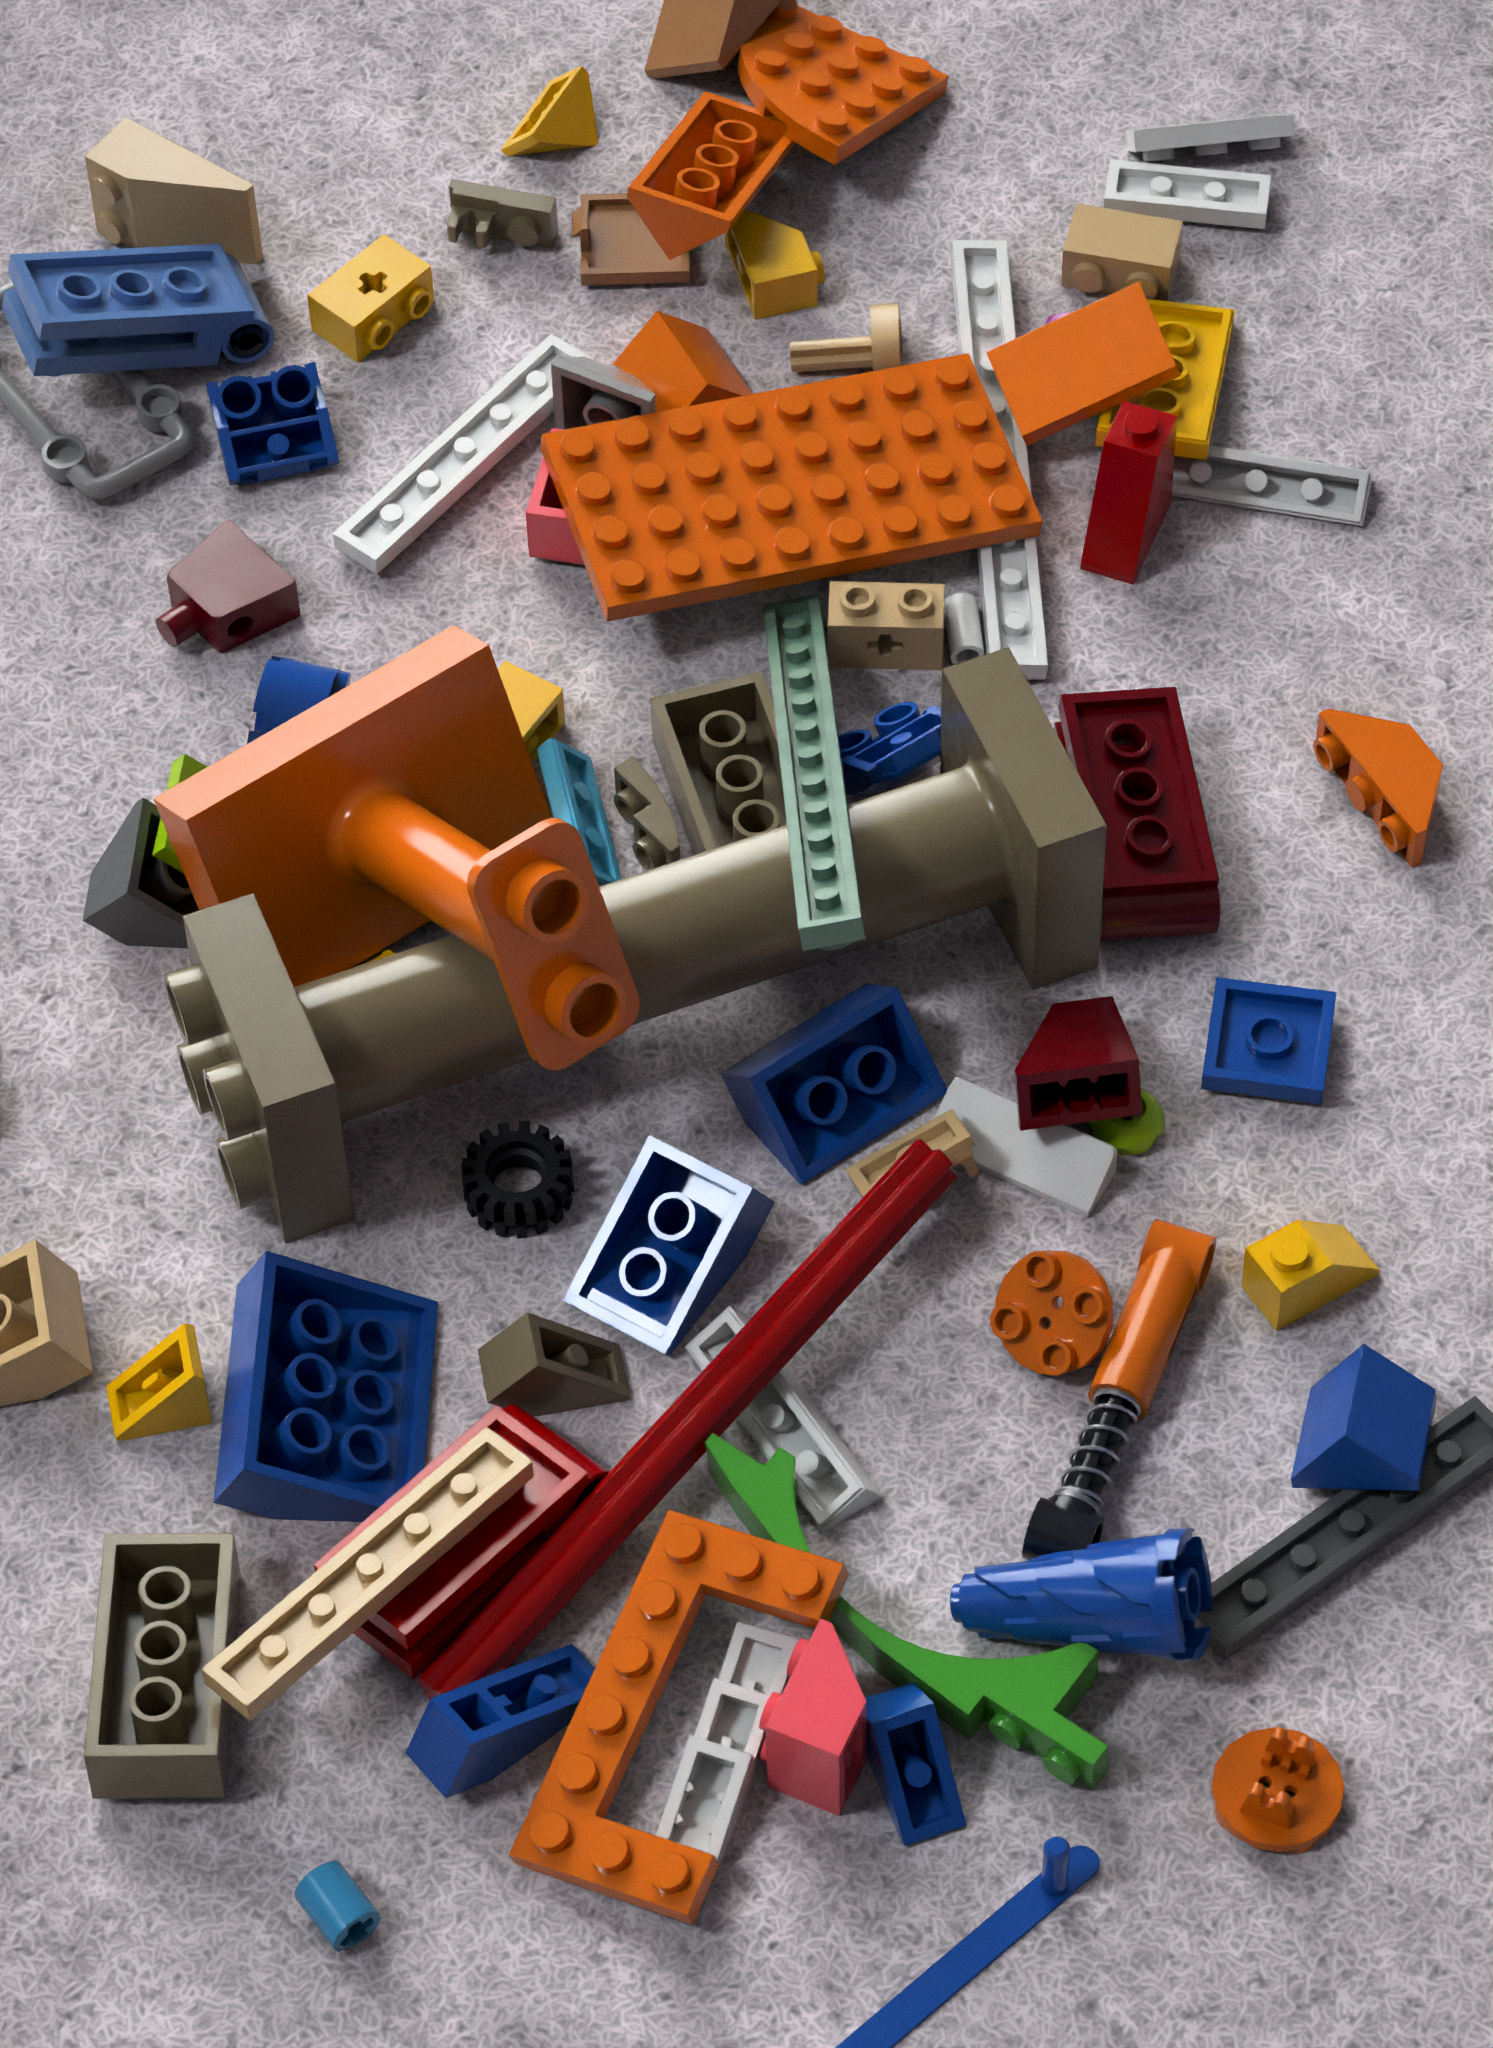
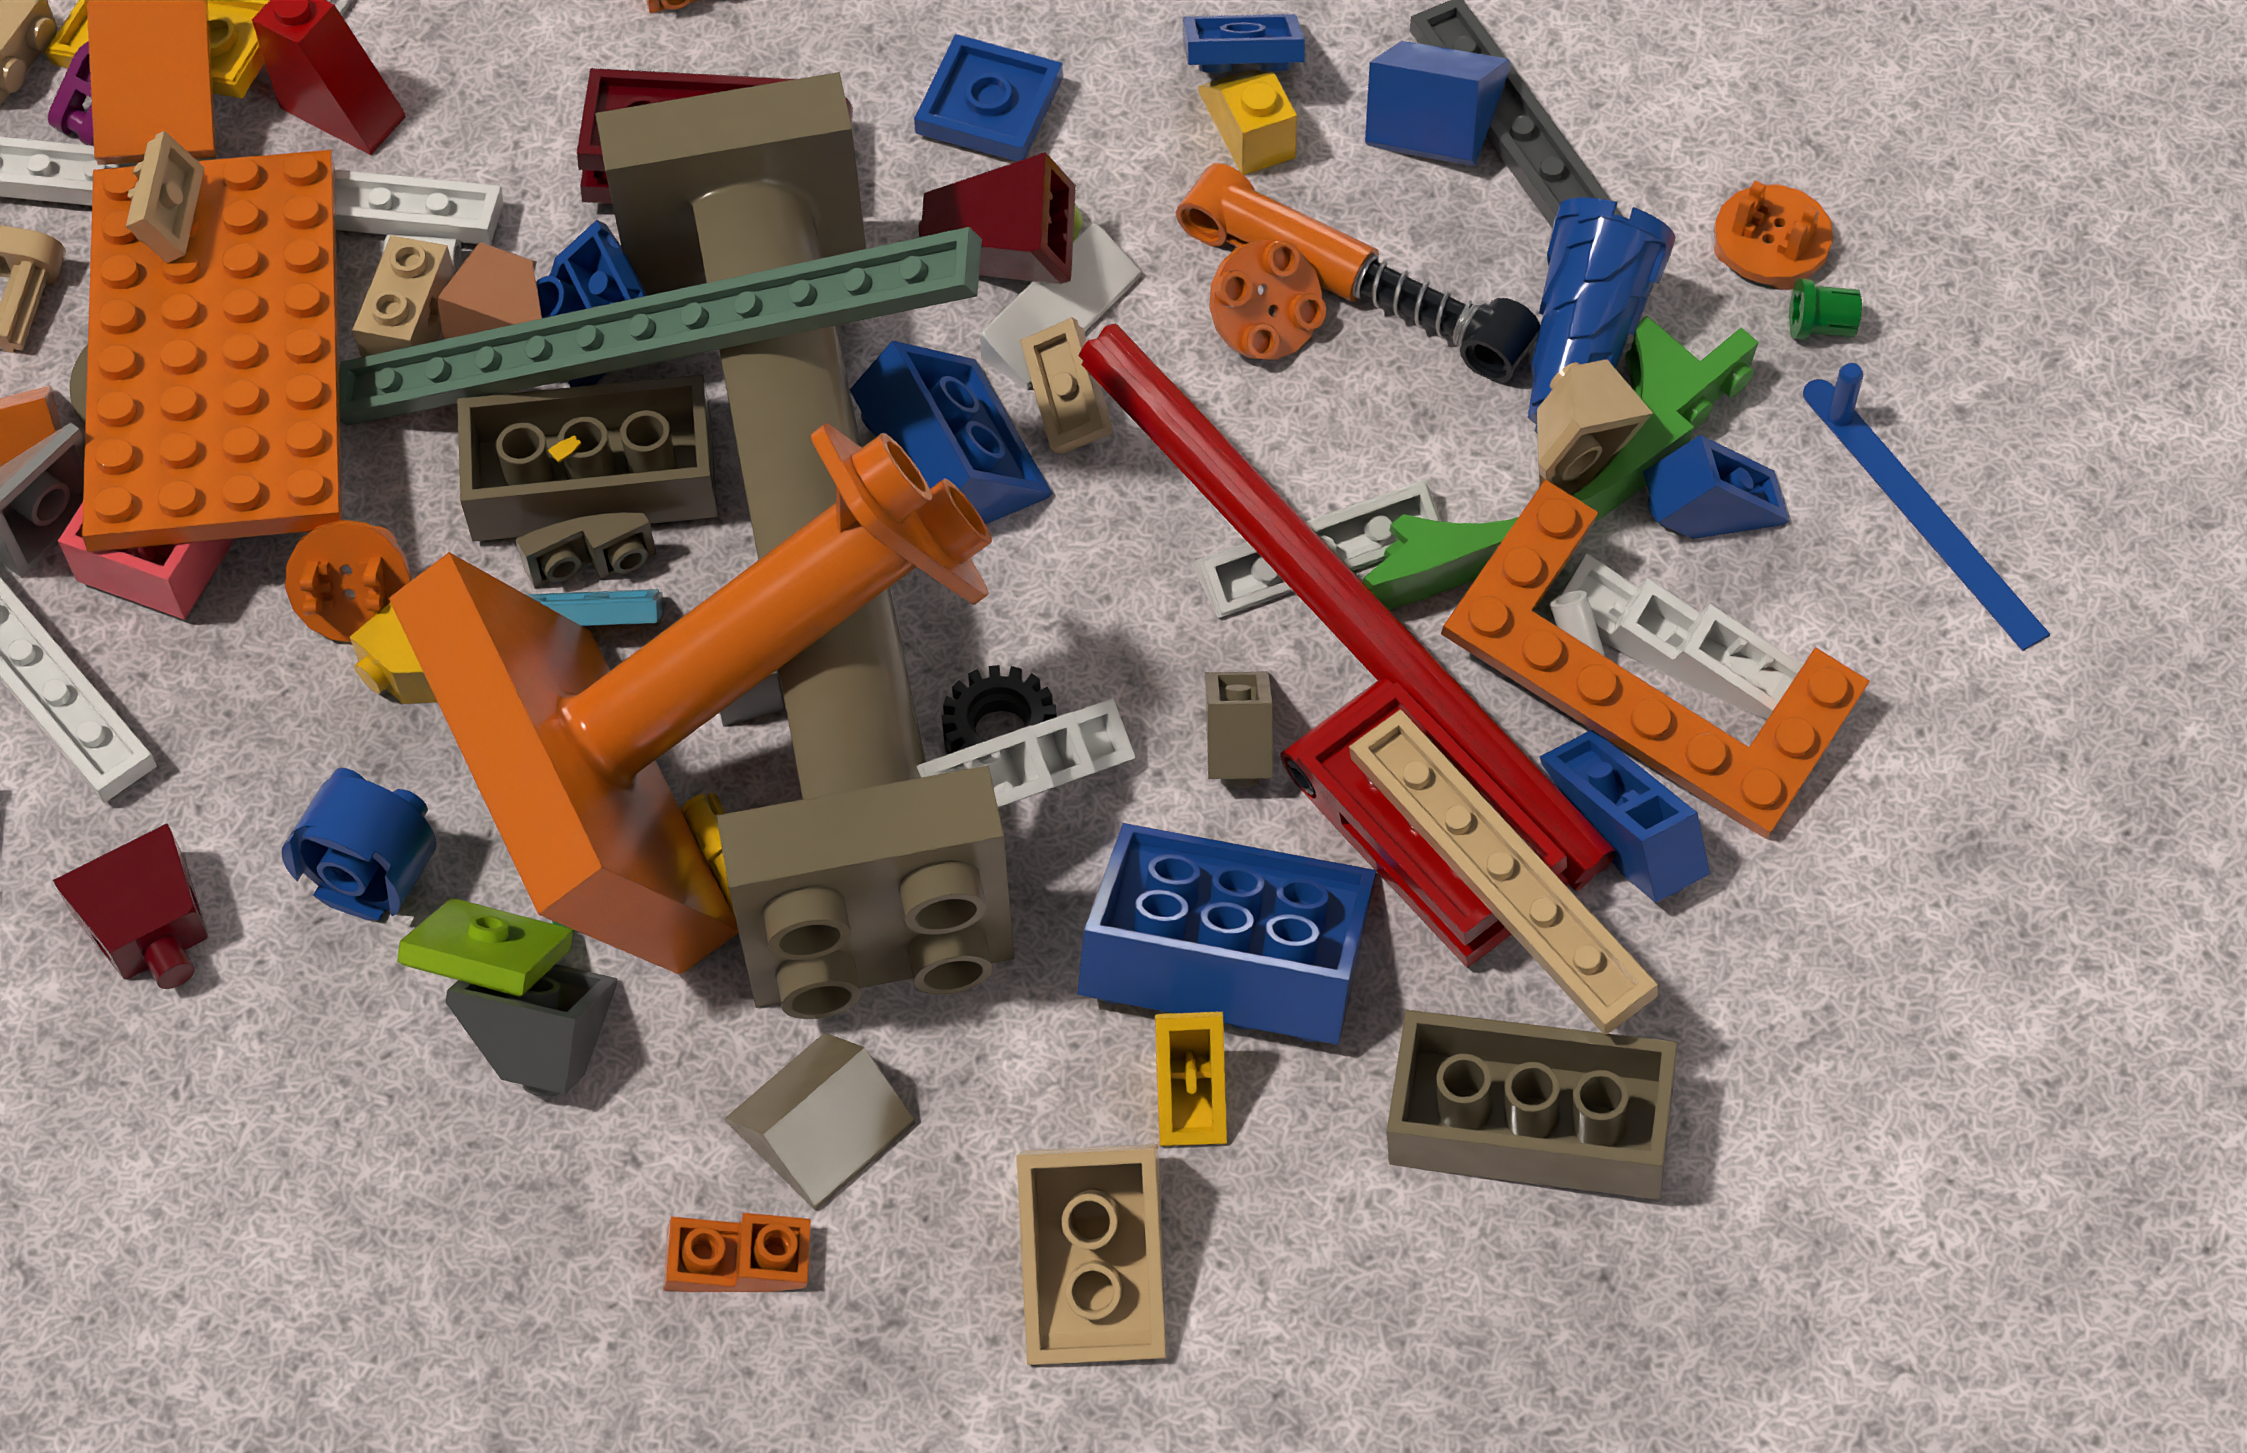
camera: 80 degrees left, 5 degrees up
(94, 1118) = (822, 1118): none -> dark tan slope
(337, 1905) = (1811, 985): dark azure piece -> none
(443, 1181) = (1045, 753): none -> white slope
(570, 644) = (319, 584): none -> orange plate
(667, 1246) = (1115, 604): blue slope -> none
(706, 1646) = (1574, 616): none -> white piece
(721, 761) = (564, 448): none -> yellow piece
(816, 1725) = (1685, 536): coral slope -> none
(894, 672) = (489, 293): none -> nougat slope
(918, 397) = (165, 197): none -> tan plate
(920, 1590) = (1585, 423): none -> tan slope
(1176, 1843) = (1823, 310): none -> green bush
(1390, 1240) = (1226, 40): none -> blue plate

